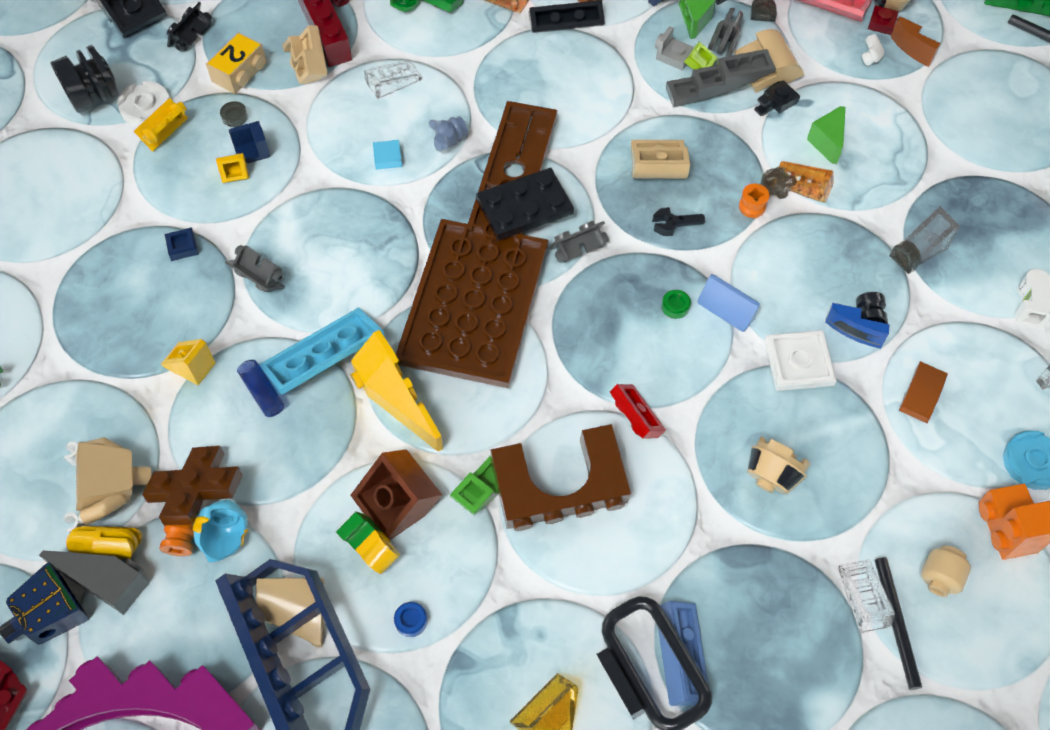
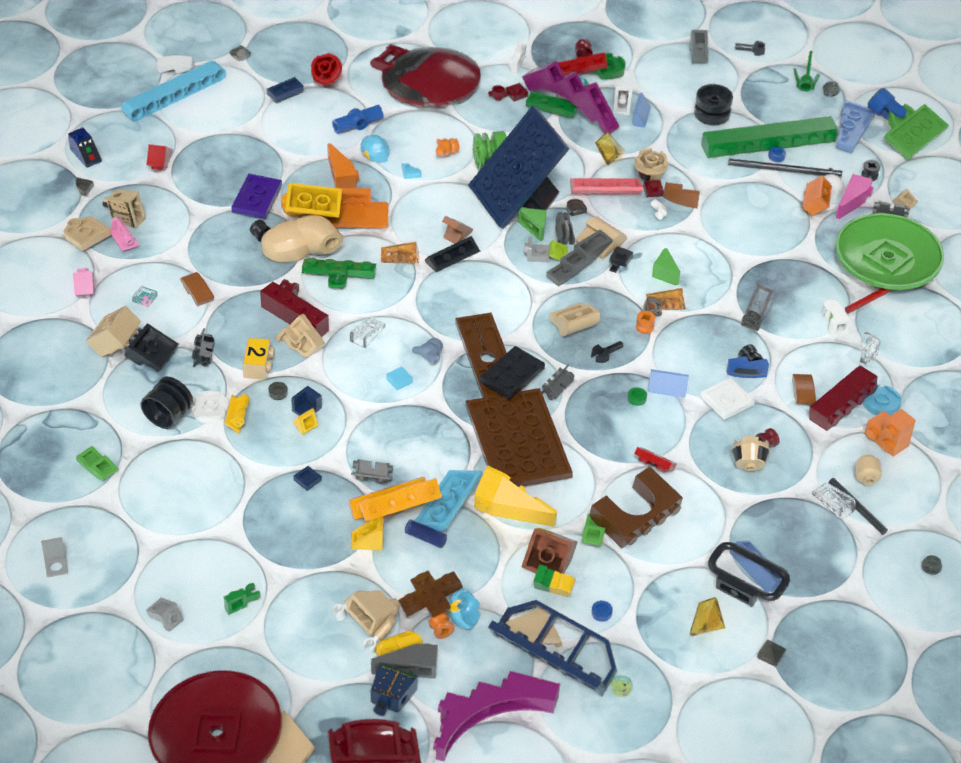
camera: 30 degrees left, 15 degrees down
(241, 323) = (394, 498): none -> light orange fence
(819, 450) = (769, 435): none -> dark red wheel
(974, 433) = (843, 398): none -> dark red brick

